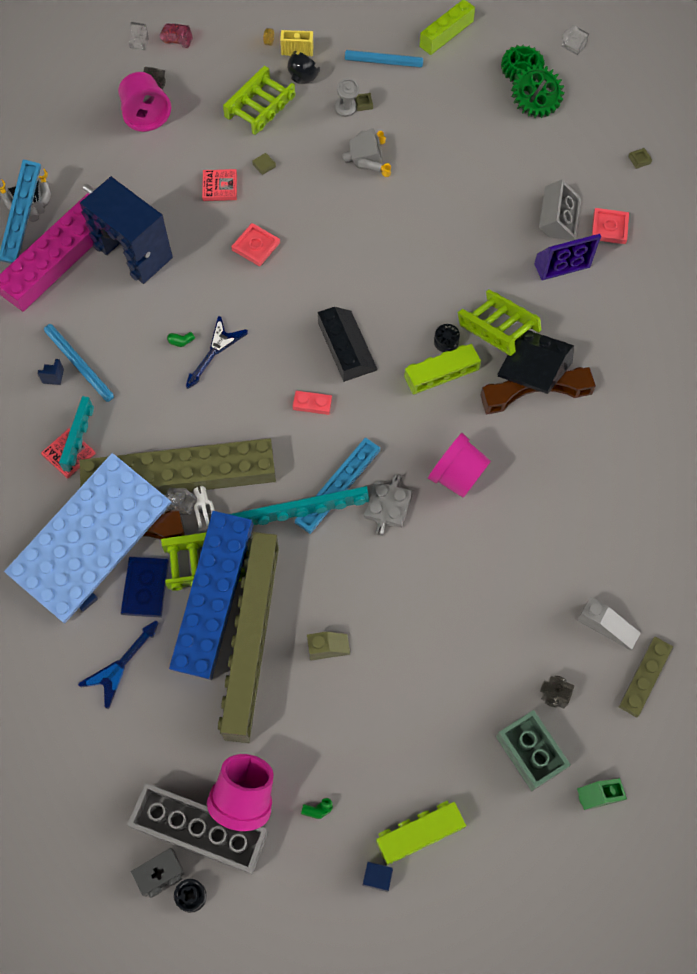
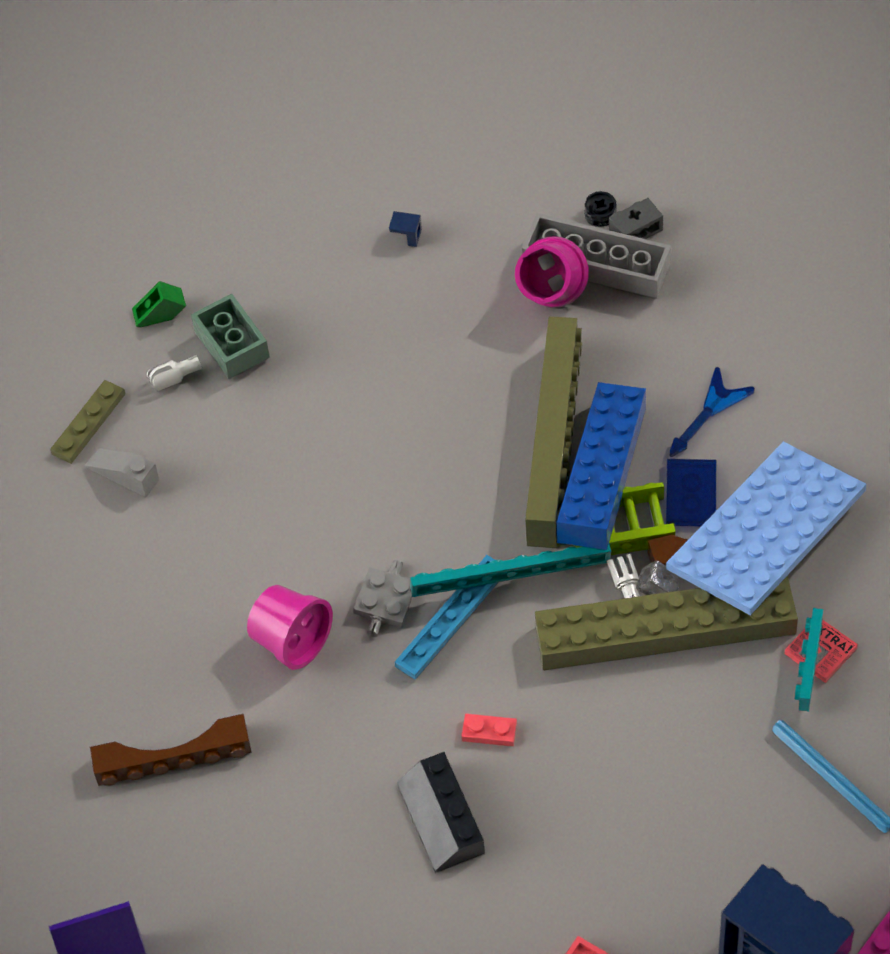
camera: 175 degrees left, 10 degrees down
(52, 373) = (867, 753): dark blue panel -> none
(180, 341) = (686, 812): green arm -> none
(220, 341) = (628, 815): clear blue piece -> none
(319, 810) = (469, 283): green arm -> none
(327, 645) = (462, 433): olive slope -> none
(420, 833) = (358, 265): lime brick -> none
(442, 368) = (303, 777): lime brick -> none
(446, 338) = (293, 826): black wheel -> none
(495, 335) = (241, 830): lime fence -> none
(537, 361) = (169, 772): black slope -> none
(556, 691) = (194, 393): clear smoke brick -> none
(579, 719) = (172, 372): none -> white arm

